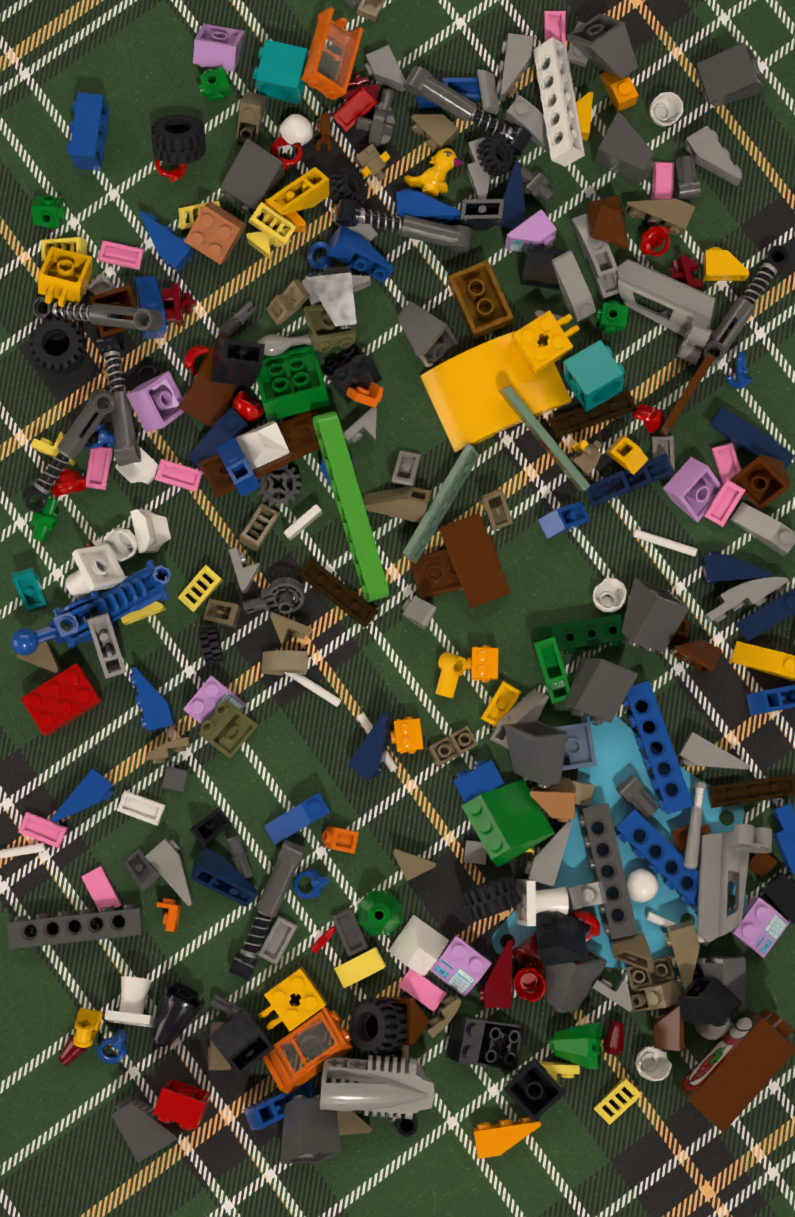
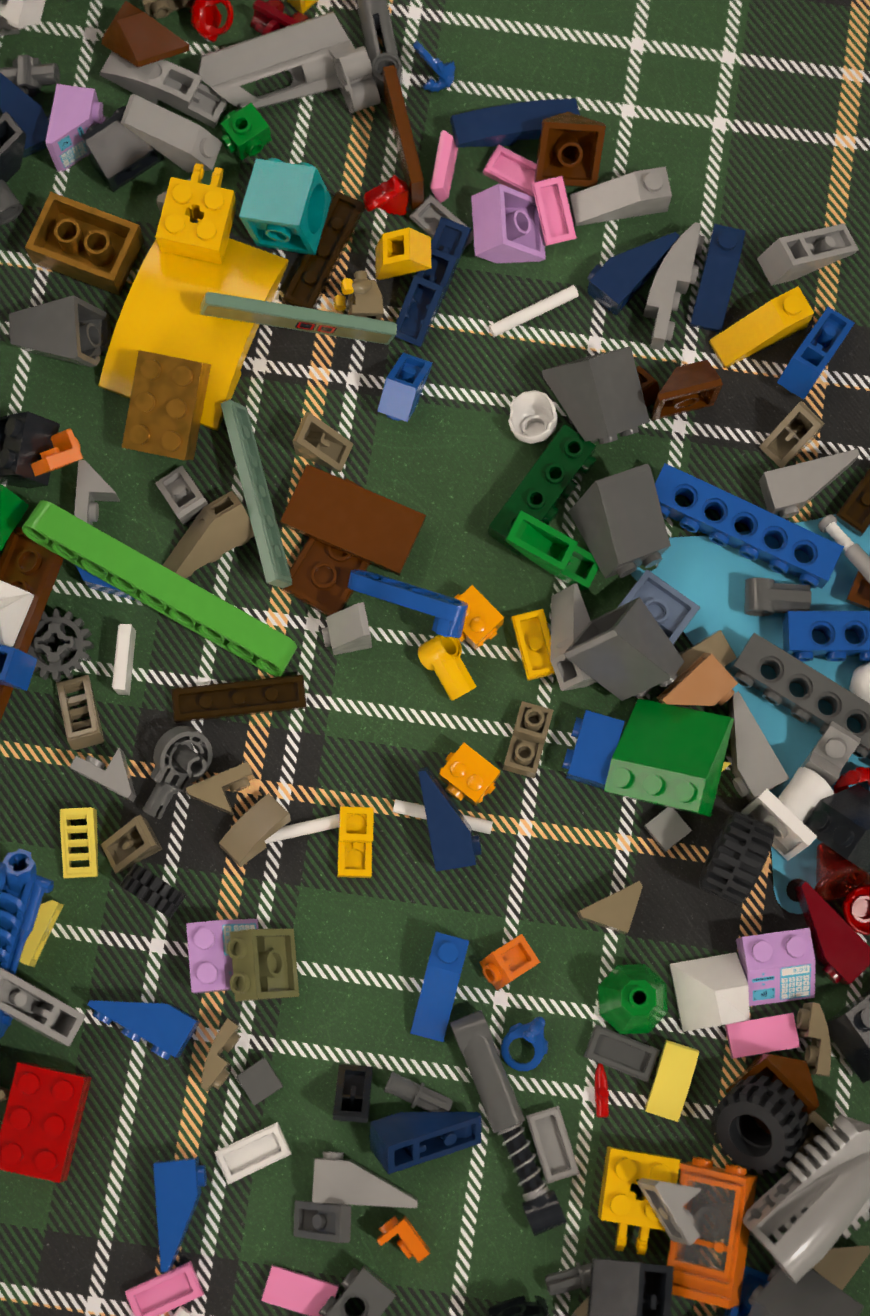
camera: 50 degrees left, 5 degrees down
(300, 1017) = (668, 1202): none -> light grey slope
(325, 714) = (355, 842): none -> yellow slope
(440, 419) = (166, 405): none -> pearl gold brick
(472, 647) = (448, 611): none -> blue beam
(692, 428) = (444, 167): none -> bright pink tile
(725, 727) = (792, 435): none -> dark tan slope

